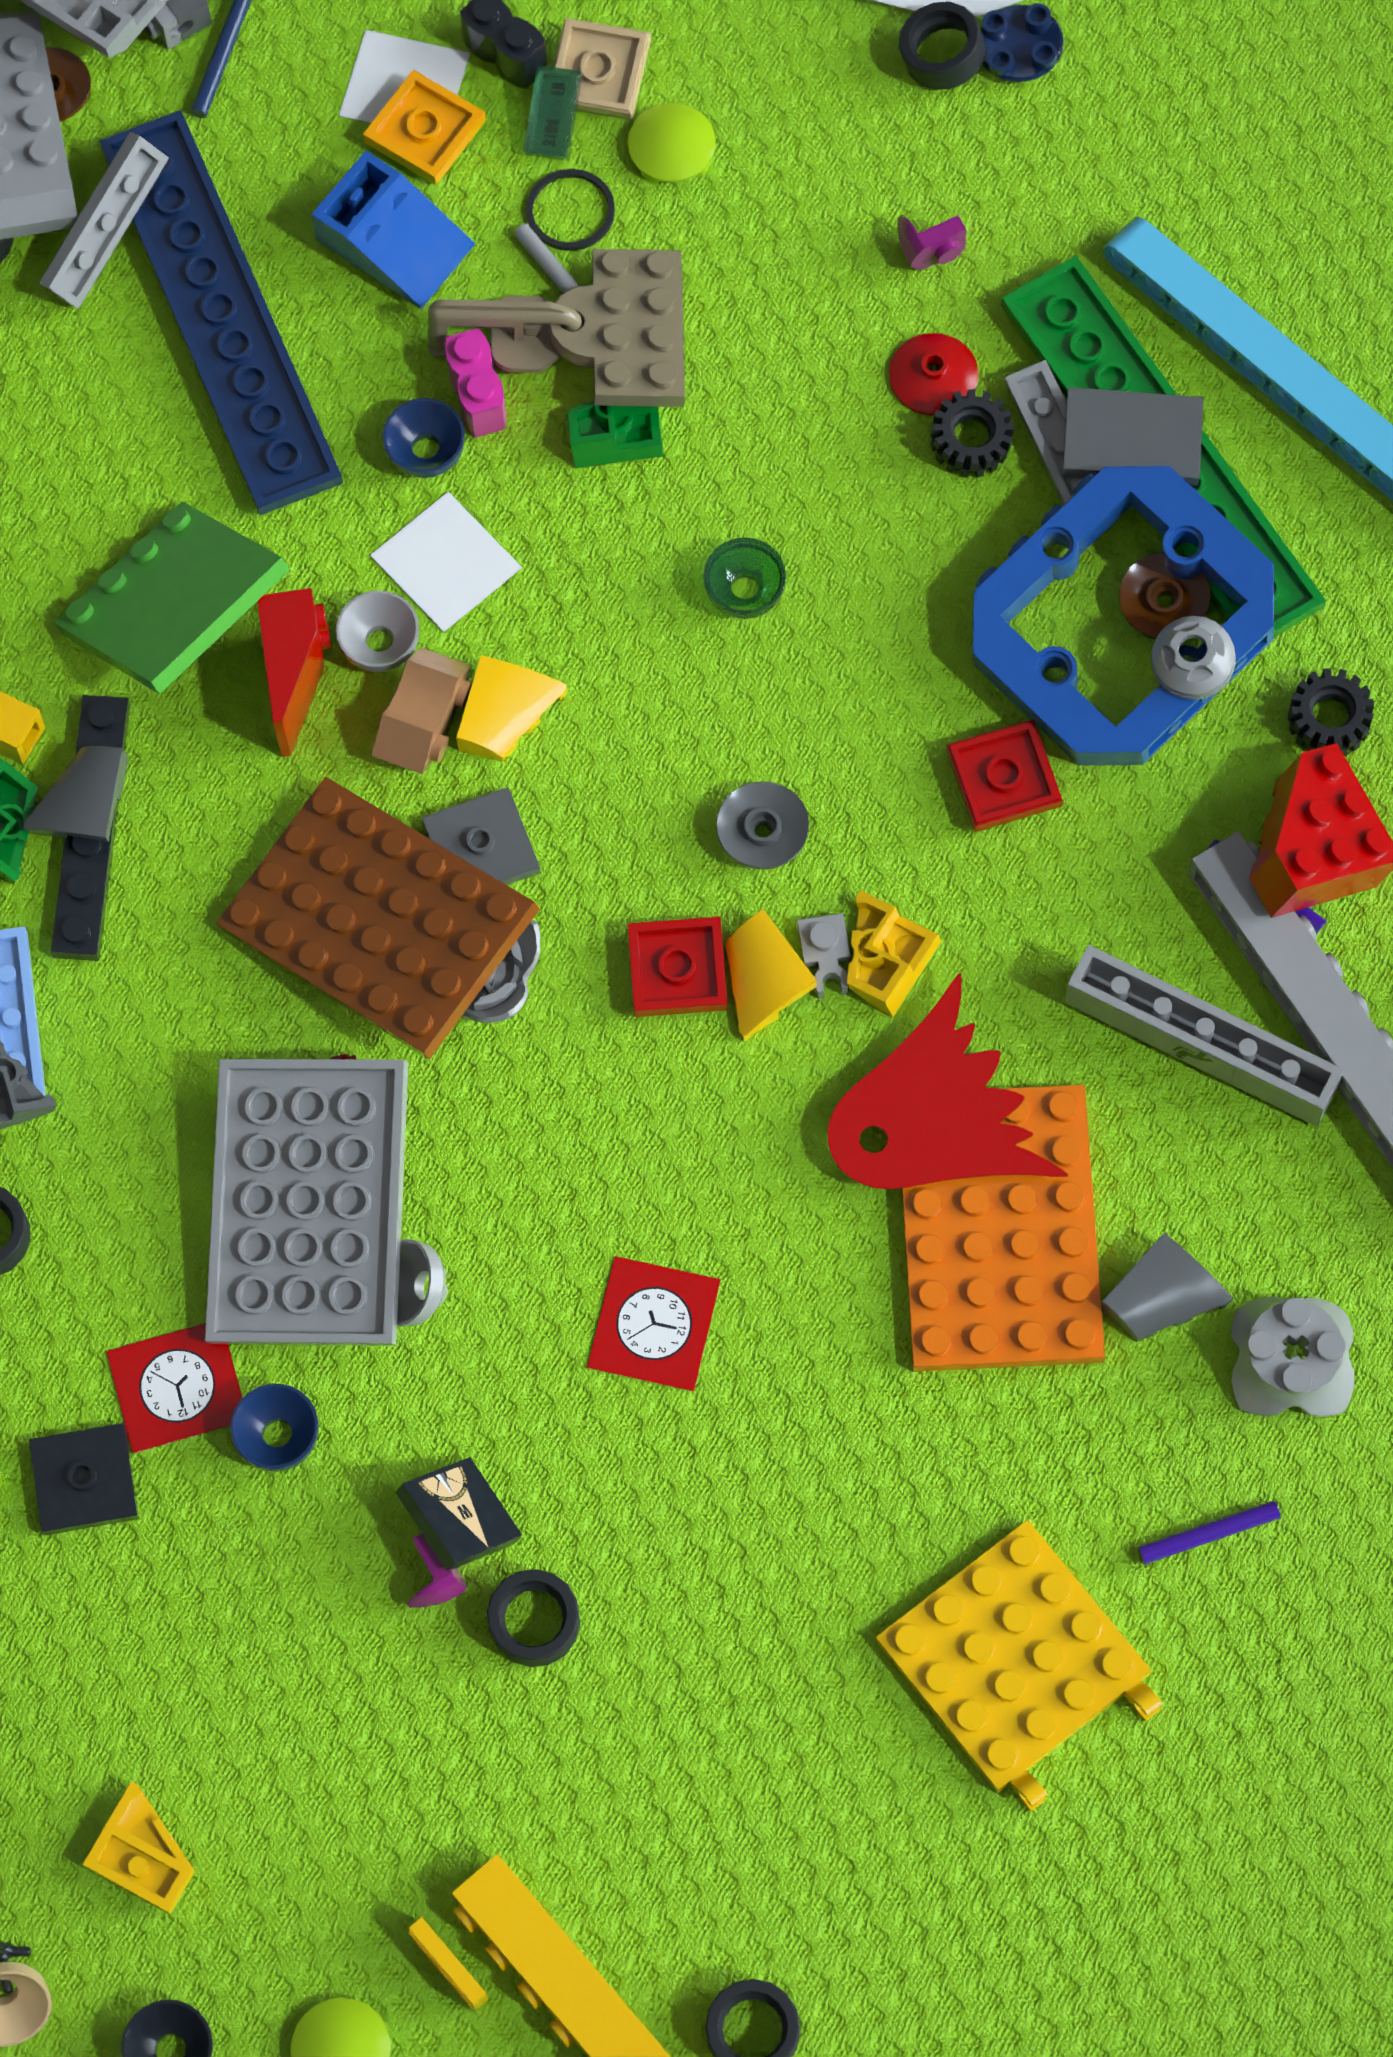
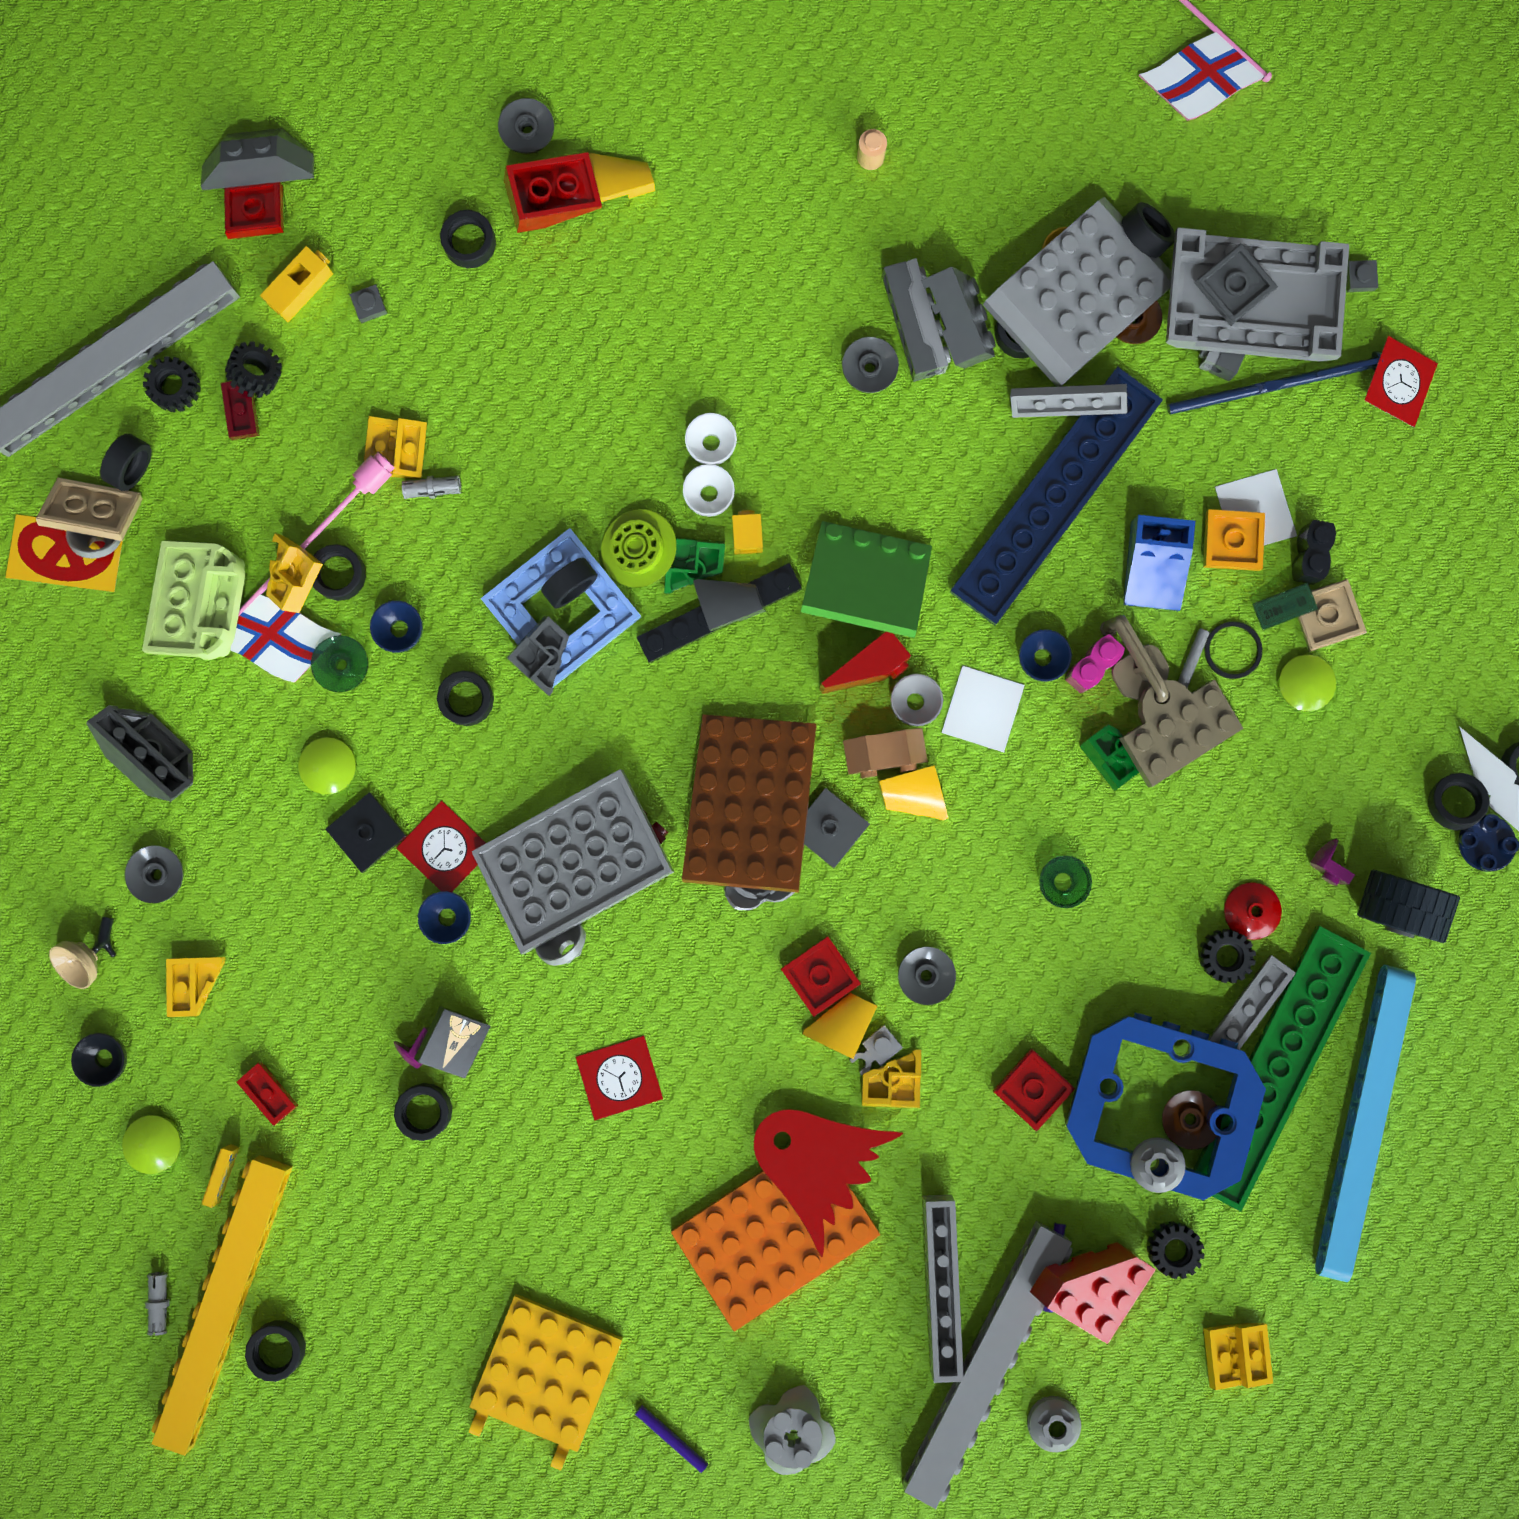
camera: 55 degrees right, 15 degrees up
(370, 1830) = (267, 1093): none -> red plate
(1036, 170) = (1408, 906): none -> black wheel
(1132, 430) = (1277, 1049): dark grey tile -> none
(1163, 1292) = (788, 1341): dark grey slope -> none

